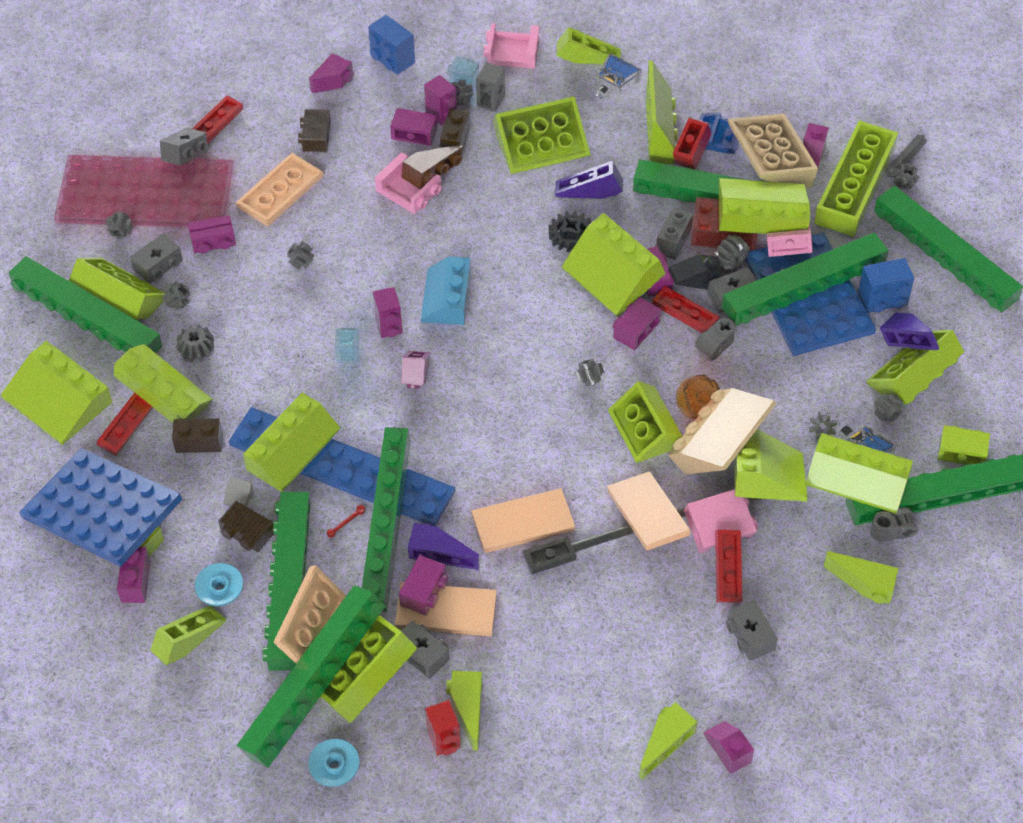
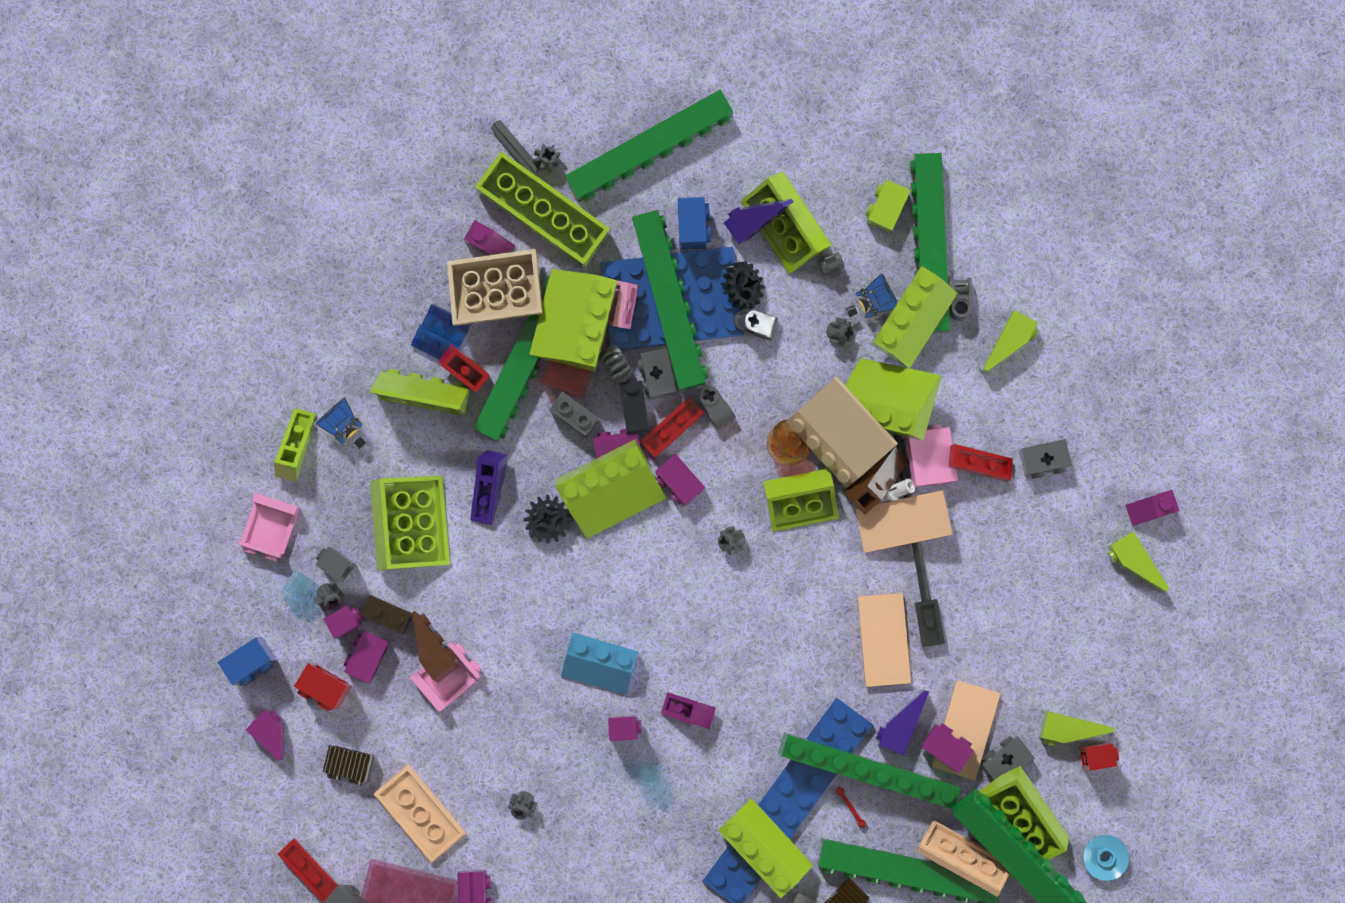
camera: 75 degrees left, 30 degrees up
(380, 96) = (322, 686): none -> red brick
(676, 493) = (899, 489): none -> white pin
(682, 475) = (876, 482): none -> reddish brown slope
(807, 361) = (756, 323): none -> flat silver piece
(849, 340) = (743, 285): none -> black gear

